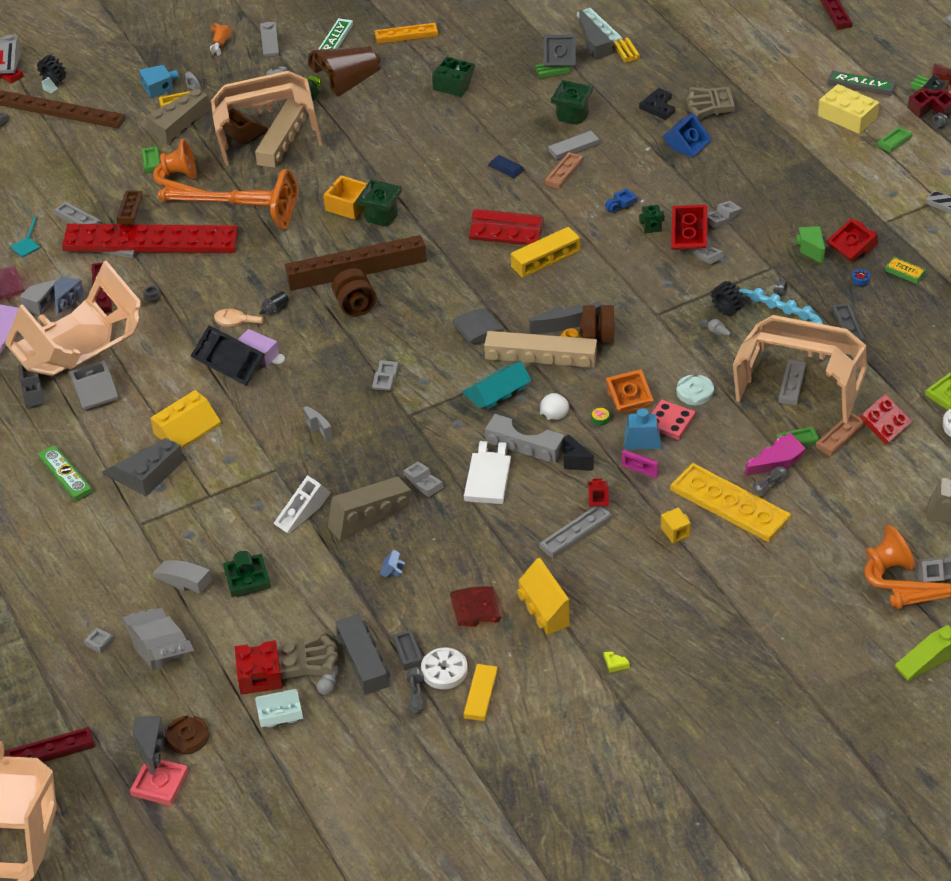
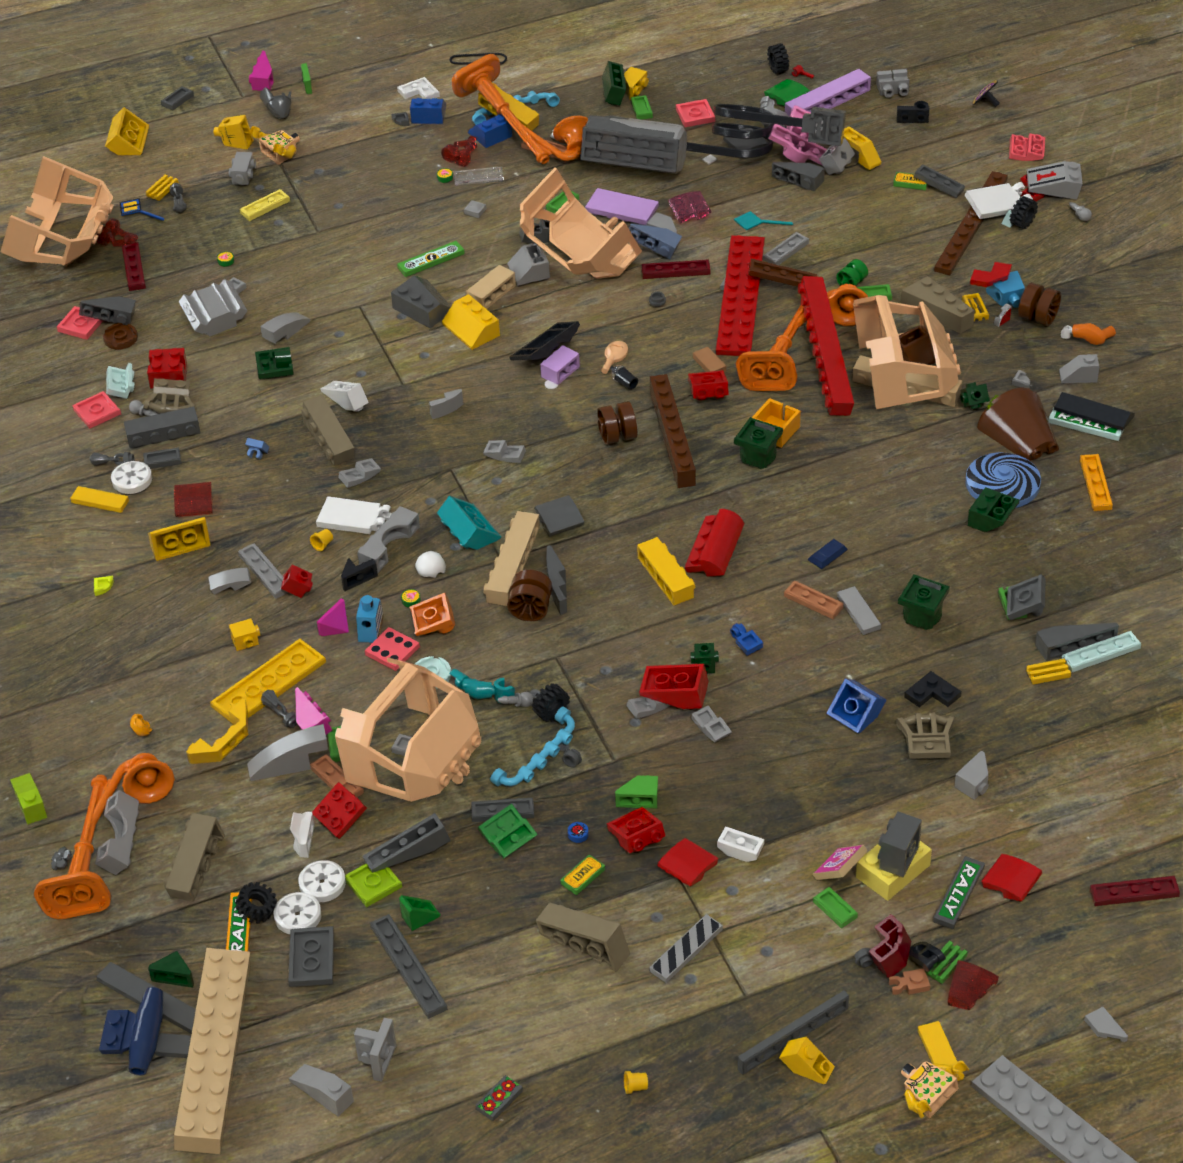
camera: 95 degrees right, 0 degrees up
(27, 87) = (995, 199): none -> white tile
(44, 657) = (225, 259): none -> tile
(50, 43) = (1083, 213): none -> light grey bar
(126, 413) = (493, 286): none -> tan brick
(129, 167) = (853, 273): none -> green wheel
(151, 81) = (999, 272): none -> red tile
(188, 55) = (1039, 304): none -> reddish brown wheel
(239, 170) = (826, 346): none -> red brick
(248, 253) = (708, 360): none -> medium nougat tile
(287, 245) = (708, 384): none -> red plate
(322, 31) = (1093, 411): none -> black slope
(324, 729) = (96, 409): none -> coral tile
(405, 78) = (1005, 474): none -> dish
(529, 489) = (321, 540): none -> yellow piece
(597, 553) = (232, 578): none -> light grey slope
(714, 349) = (482, 689): none -> teal piece
(747, 76) = (973, 777): none -> light grey slope
(792, 500) = (203, 753): none -> yellow slope
(815, 582) = (139, 725): none -> light orange plate
(831, 459) = (288, 754): none -> light grey slope
(841, 59) = (1012, 877): none -> red slope
(849, 185) = (740, 844): none -> white slope
(855, 81) = (899, 843): none -> dark grey brick
(859, 131) = (840, 862): none -> tile
(875, 315) = (507, 831): none -> green slope
(877, 211) = (687, 862): none -> red slope
(910, 365) = (411, 843): none -> dark grey slope
(918, 440) = (302, 830): none -> white slope

